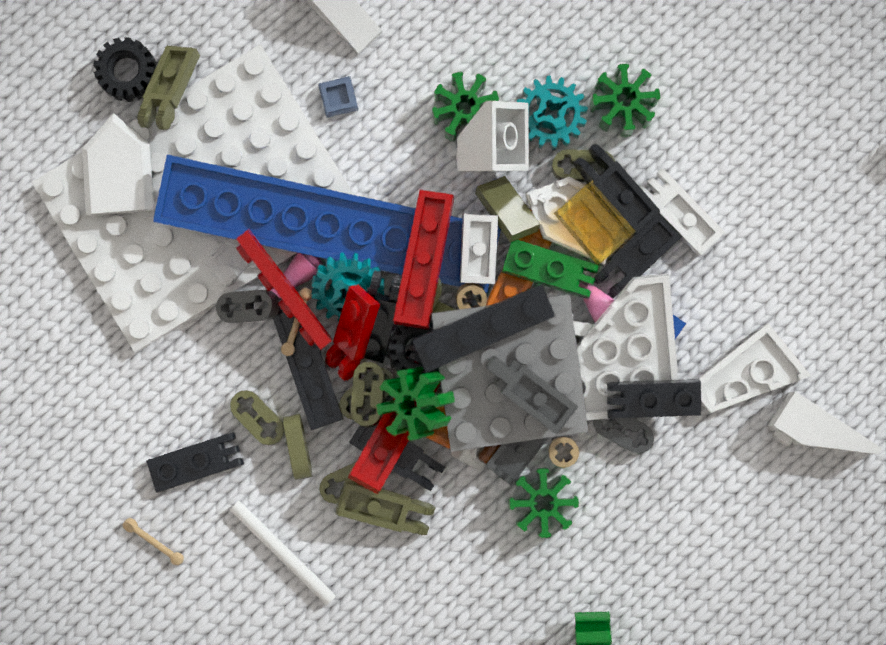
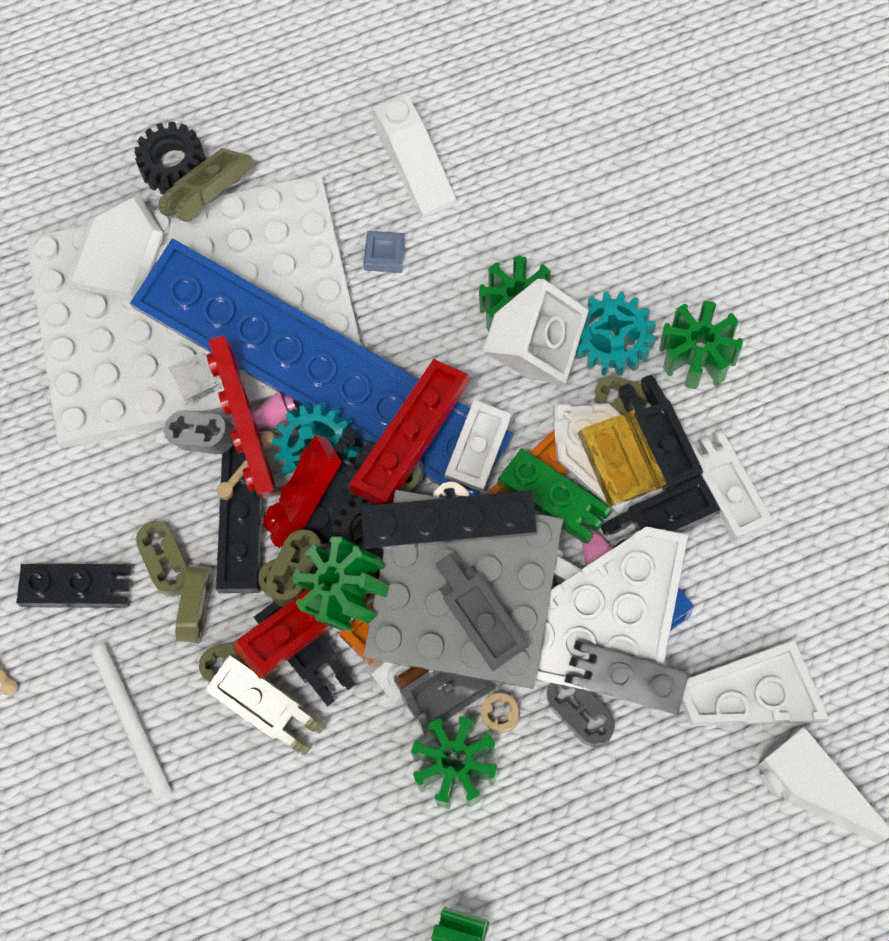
camera: 25 degrees right, 15 degrees down
(512, 212) = (530, 420): olive tile -> none

